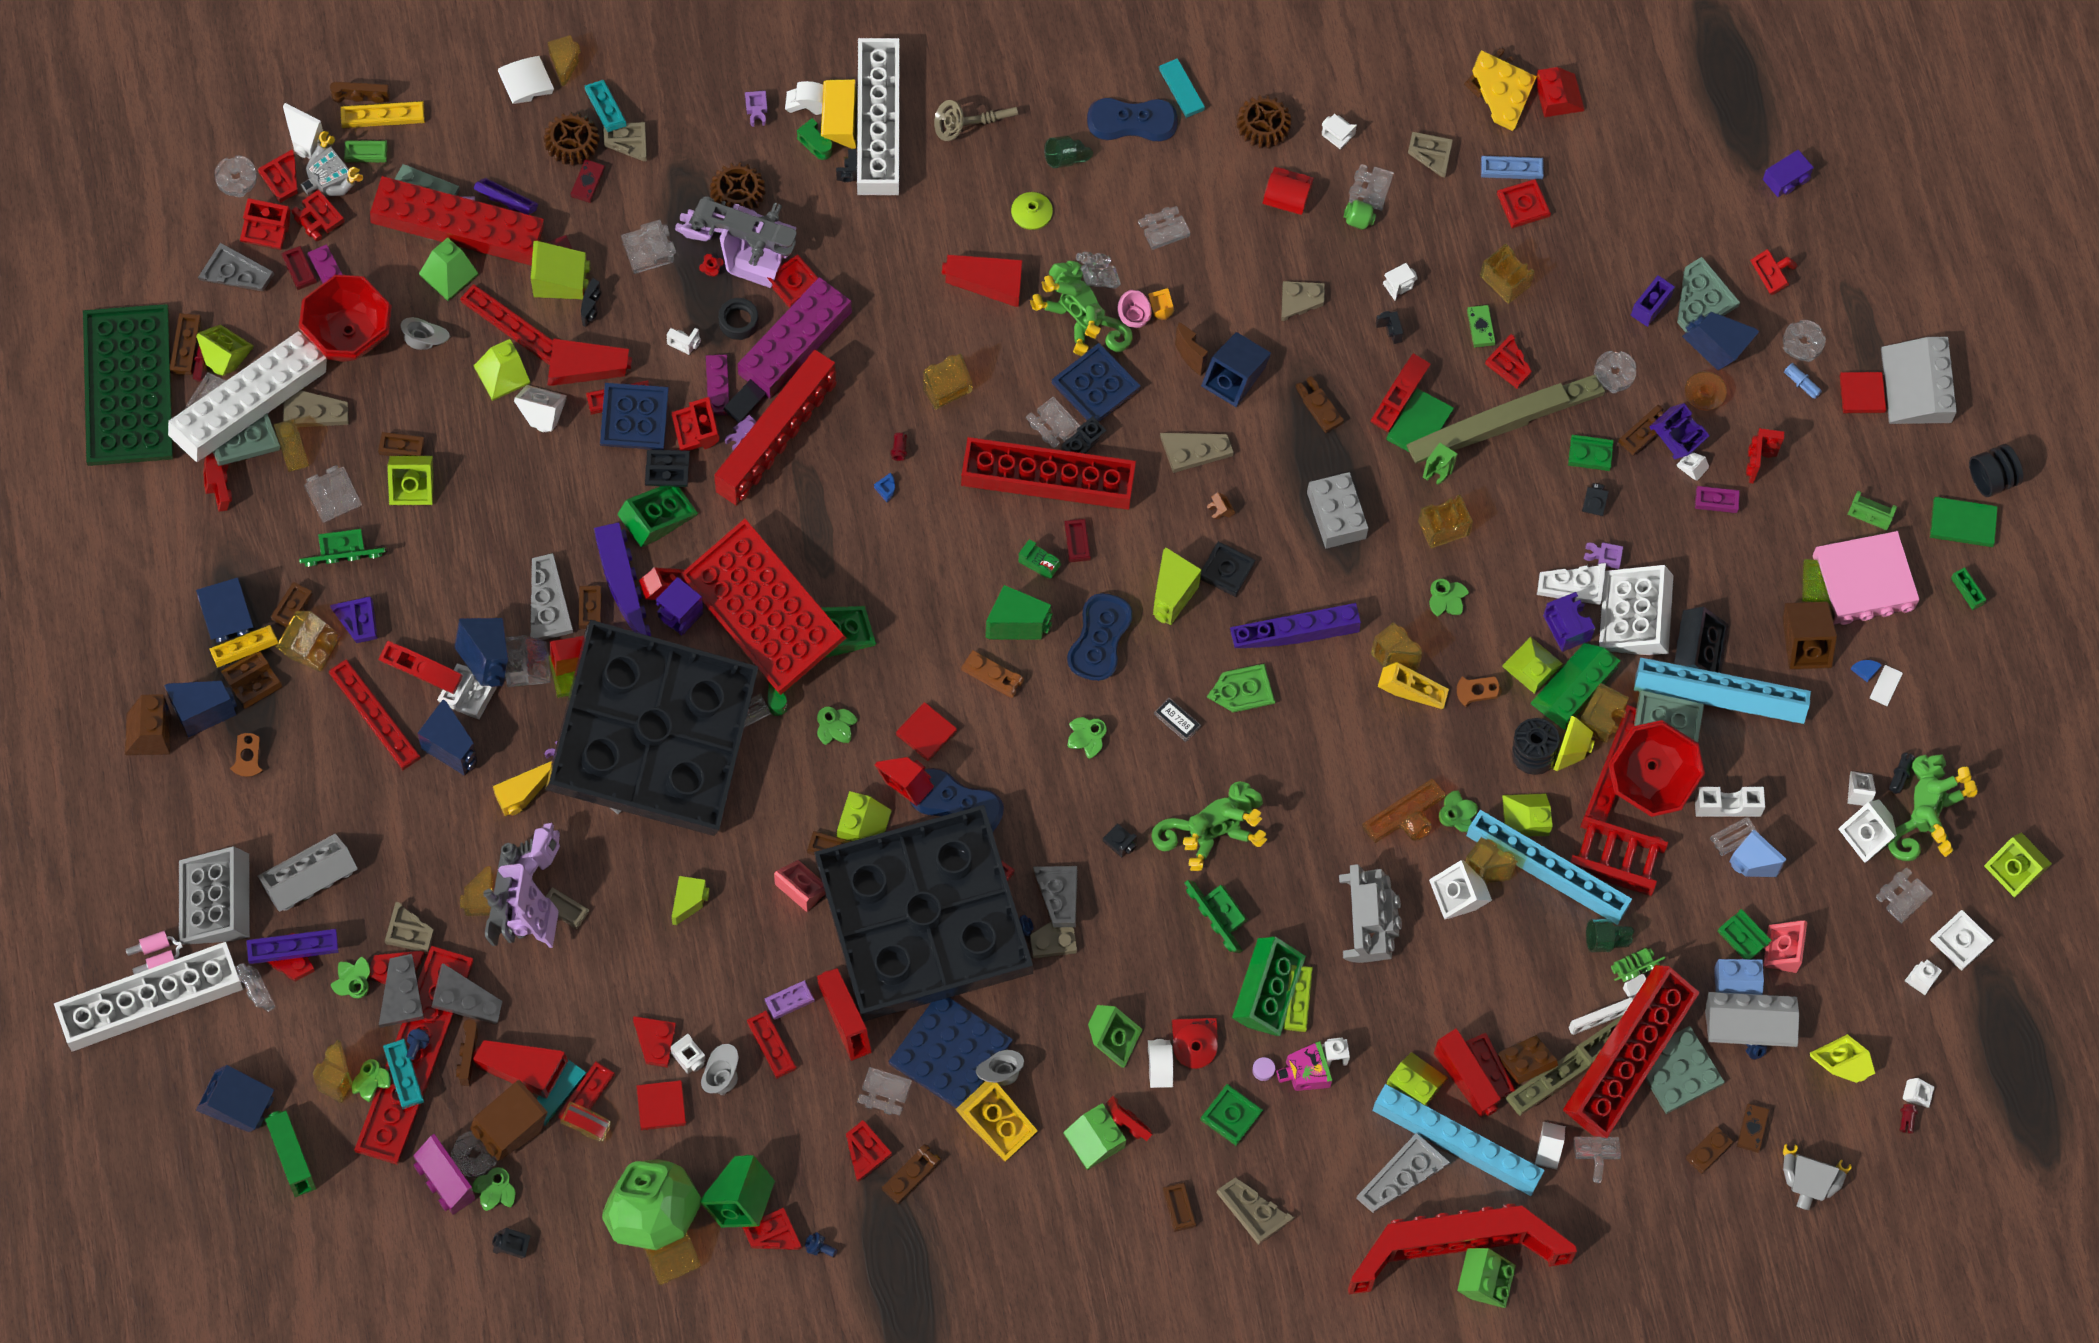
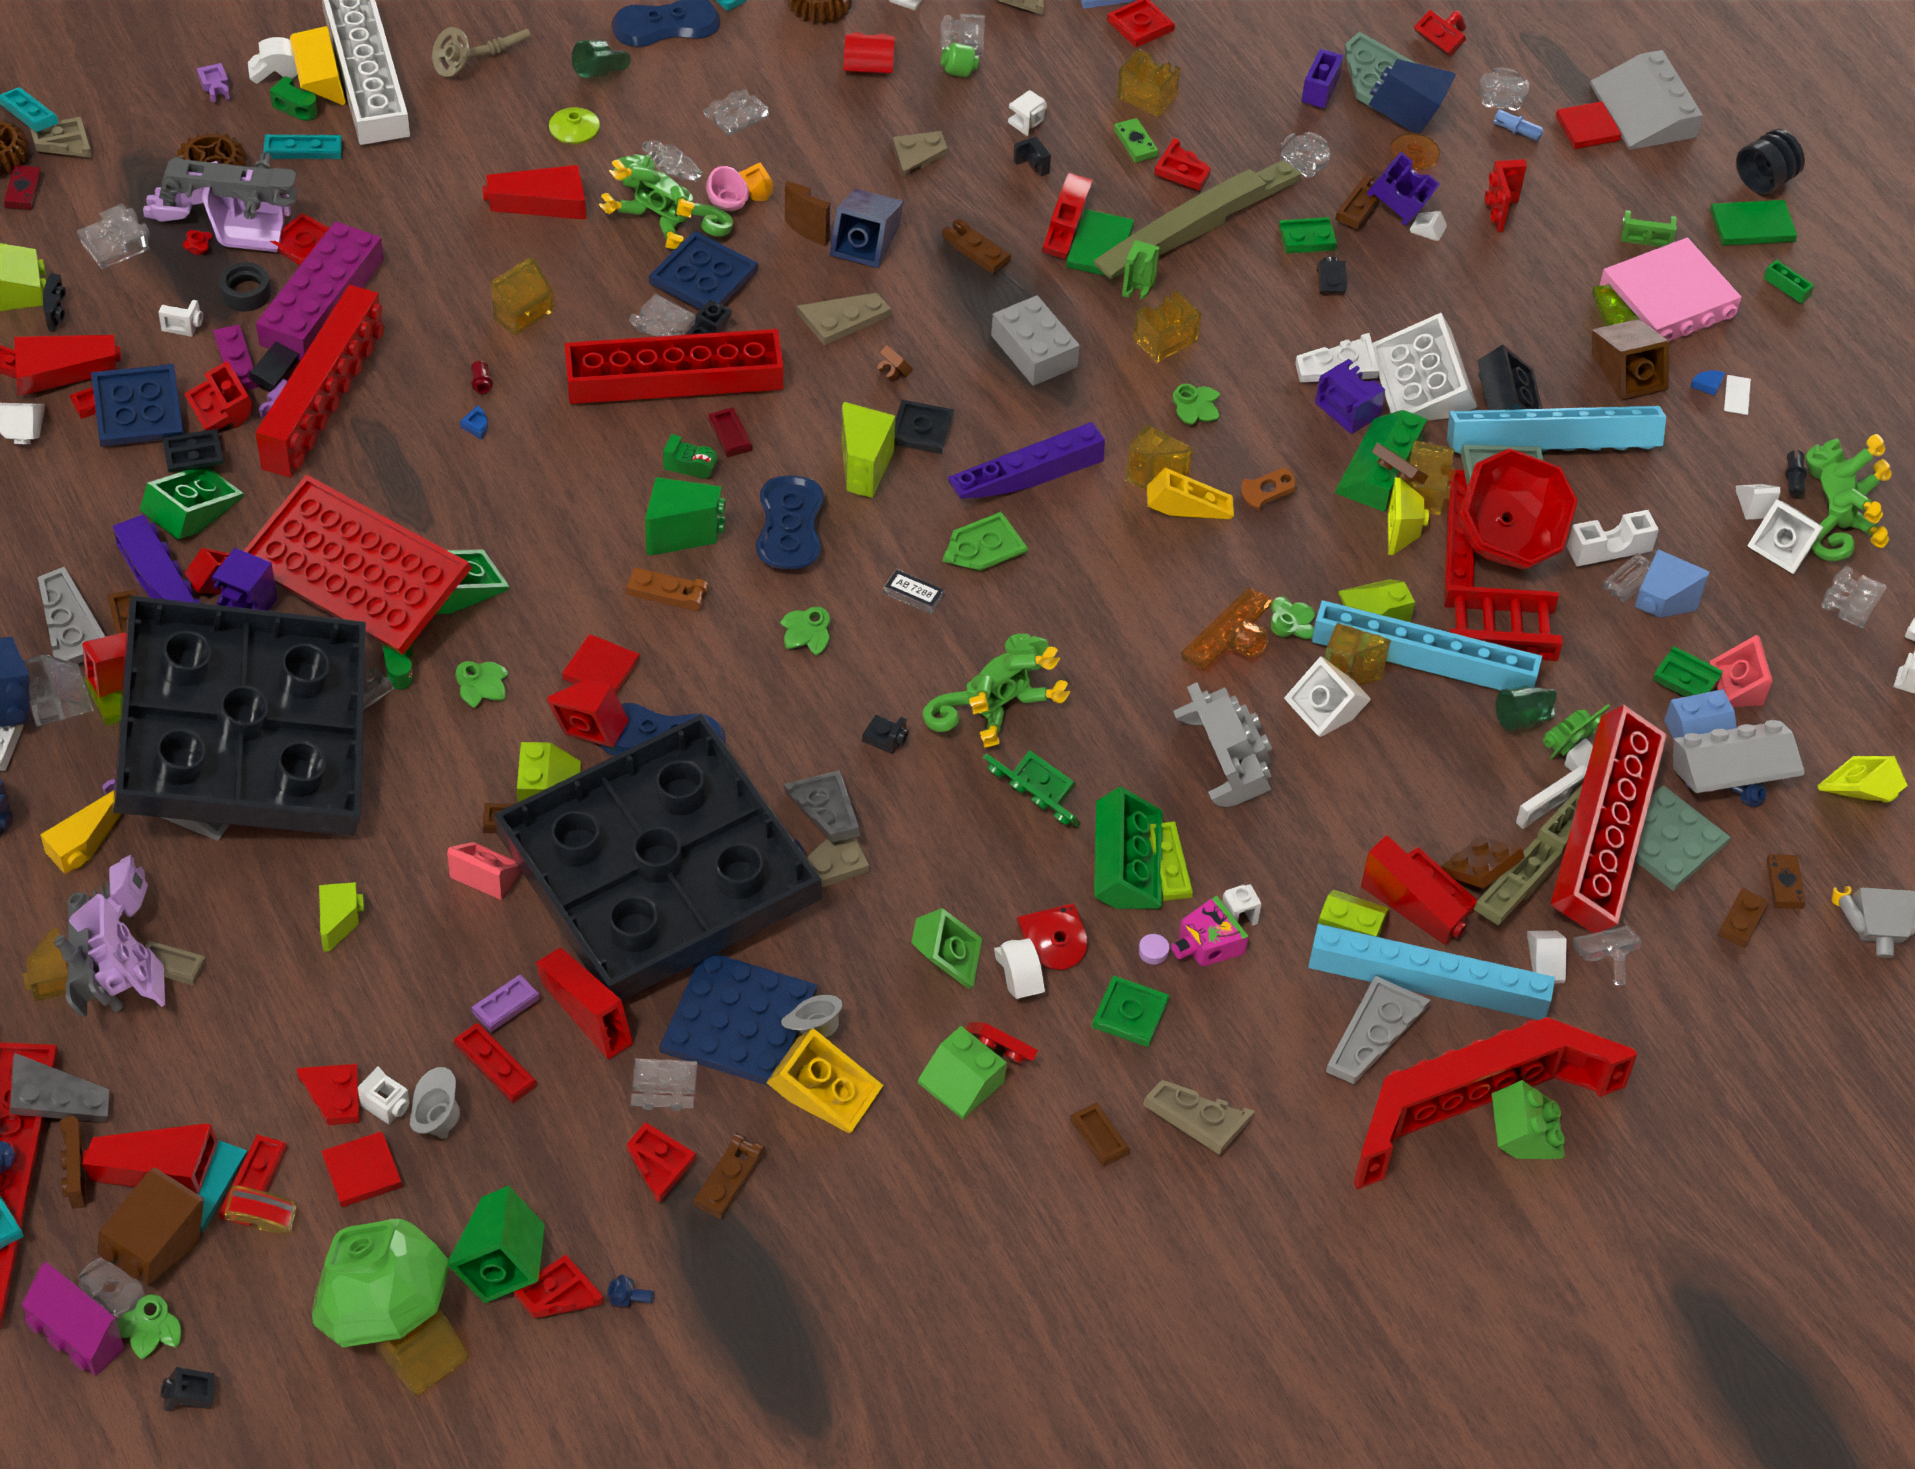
camera: 15 degrees left, 15 degrees down
(812, 186) = (303, 146): none -> teal tile
(849, 171) = (342, 122): black bracket -> none
(1532, 665) = (1322, 453): lime slope -> none
(1535, 746) = (1361, 526): black wheel -> none
(1579, 704) = (1390, 459): none -> reddish brown plate
(1606, 554) = (1362, 325): medium lavender plate -> none
(1717, 499) = (1470, 250): magenta plate -> none

